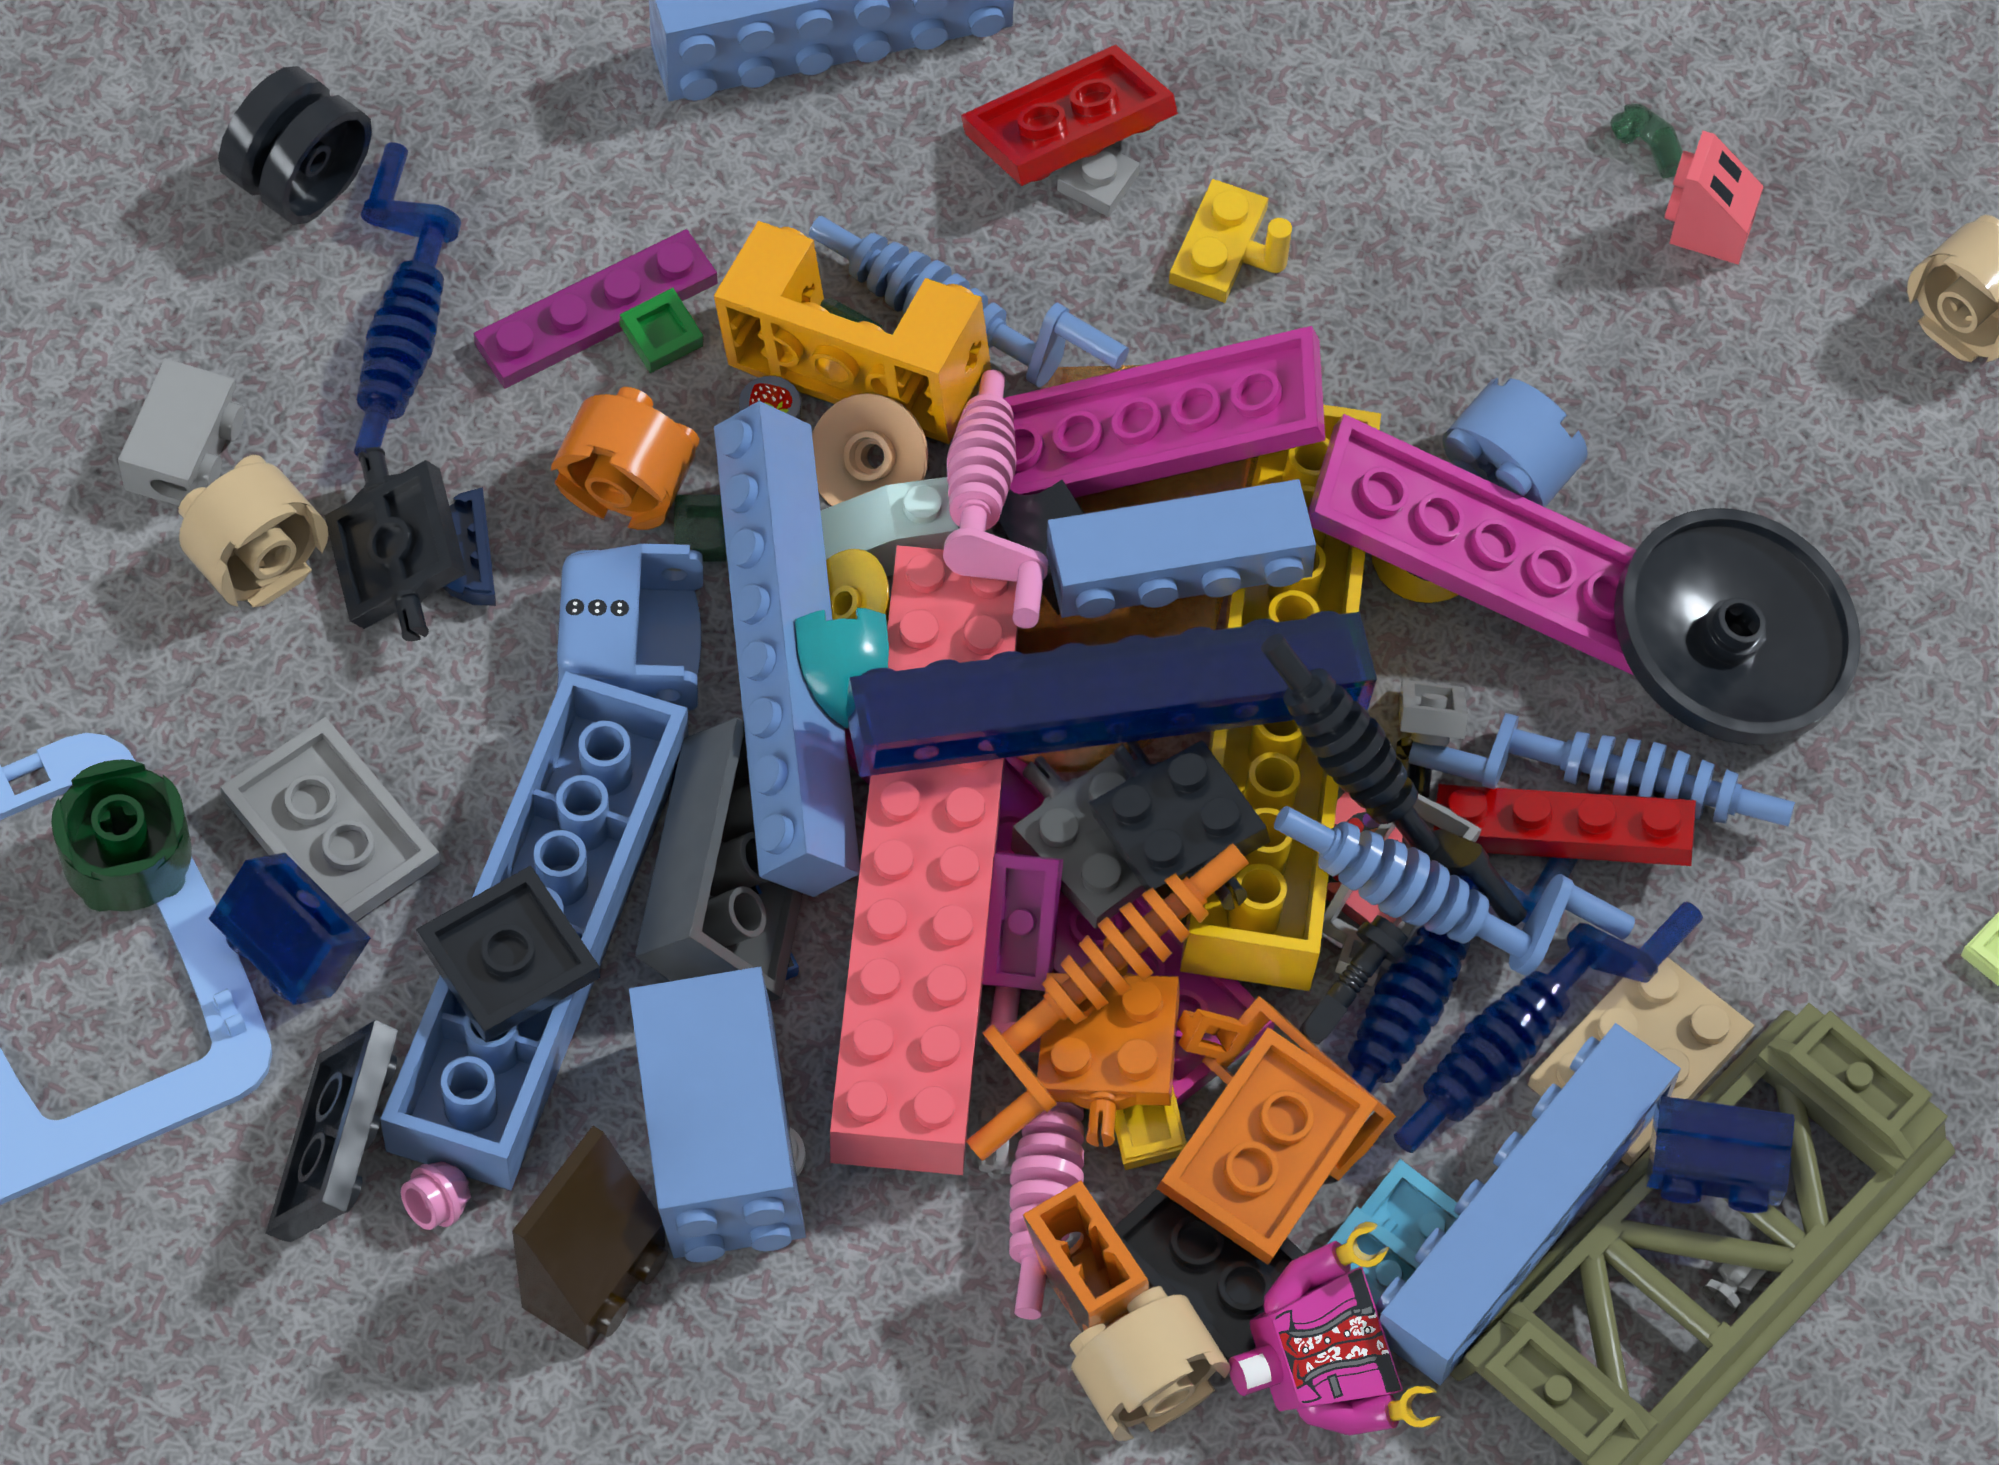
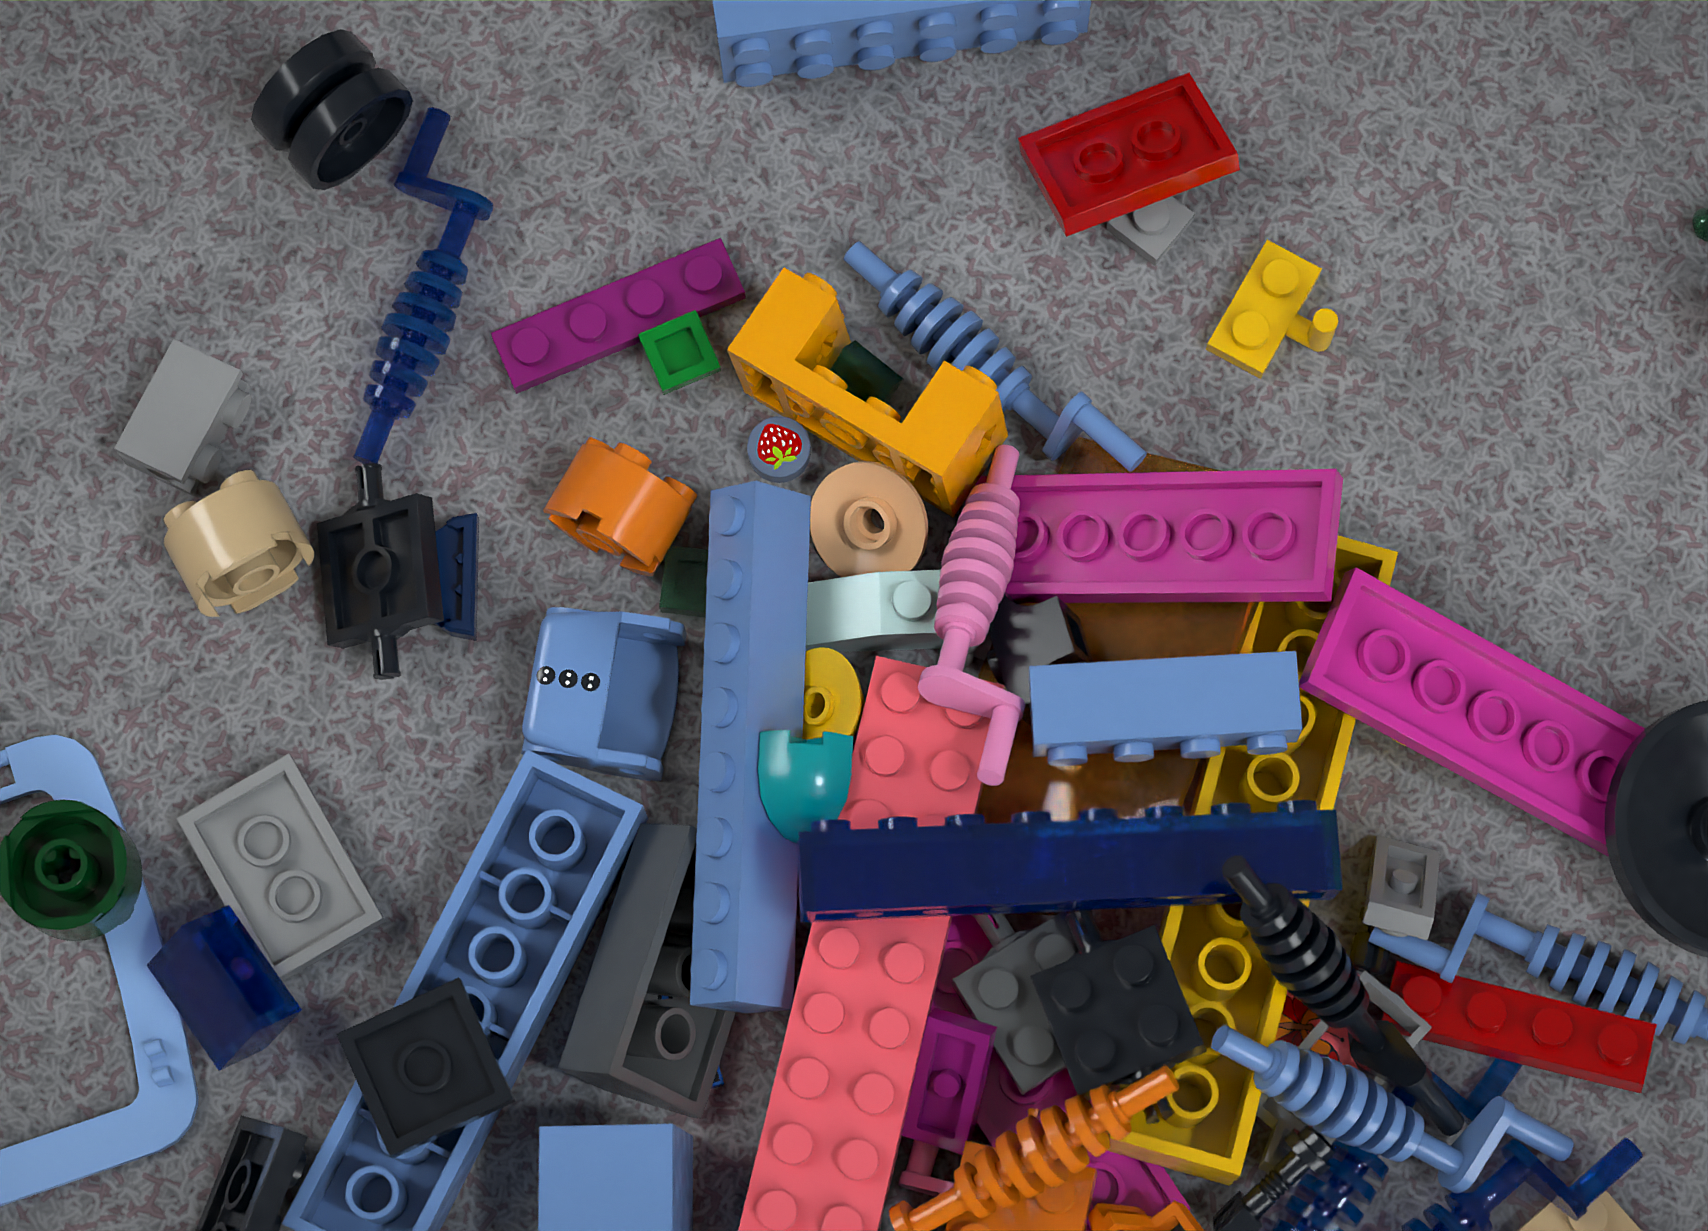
camera: 15 degrees right, 15 degrees up
(1516, 441) = (1529, 599): medium blue brick -> none

